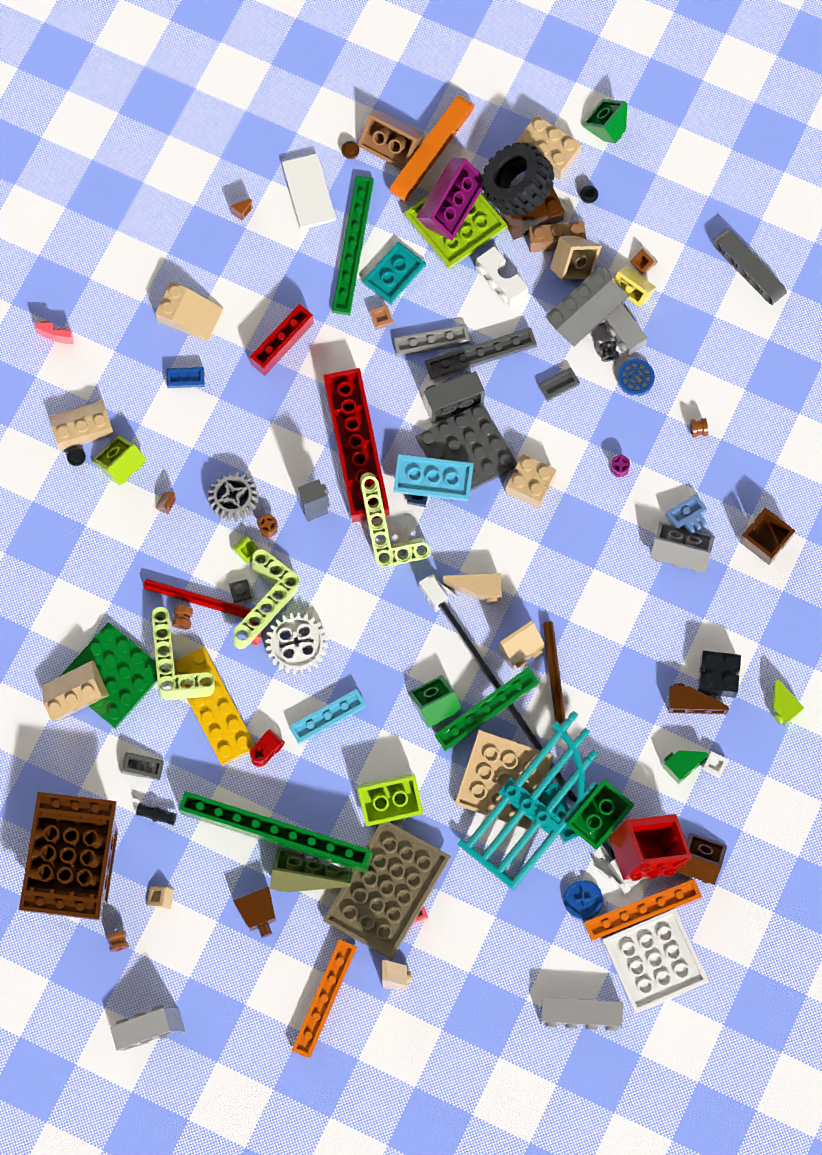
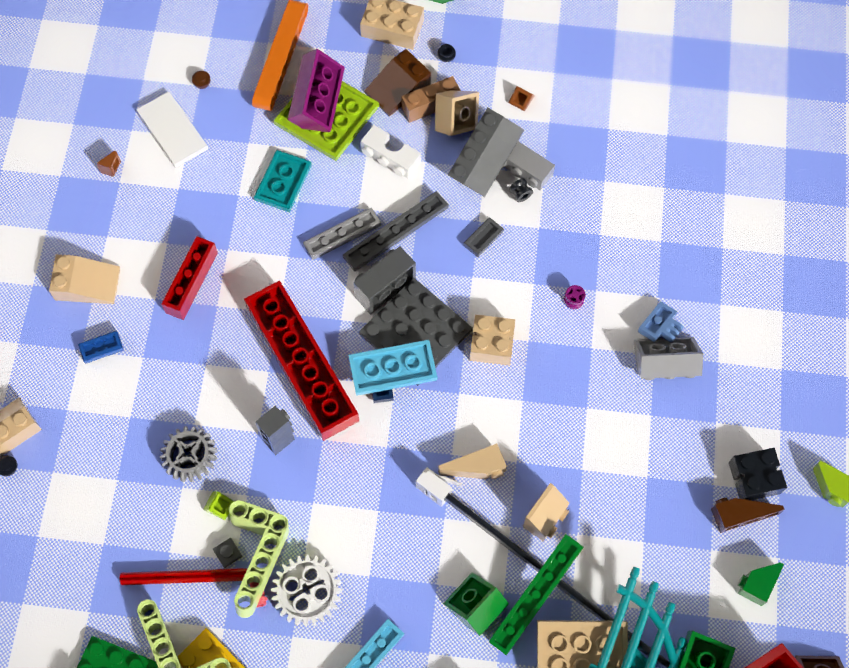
camera: 20 degrees left, 5 degrees down
(119, 460) = (55, 454): lime slope -> none
(166, 502) = (118, 482): dark orange slope -> none
(182, 617) = (172, 603): dark orange wheel -> none
(267, 521) = (236, 469): dark orange wheel -> none
(353, 245) = (233, 168): green tile -> none
(381, 317) = (284, 226): nougat plate -> none
(381, 528) = (357, 436): yellowish green beam -> none
(390, 138) = (236, 57): medium nougat slope -> none
(529, 191) = (389, 63): black tyre -> none
(554, 673) = (590, 533): reddish brown axle -> none
(635, 286) = (528, 121): light yellow brick -> none
(636, 377) = (556, 207): tile -> none
(699, 427) = (637, 235): dark orange wheel -> none
(715, 765) = (792, 572): white plate -> none
(749, 266) = (623, 73): dark grey beam -> none
(767, 536) = (746, 318): reddish brown piece -> none

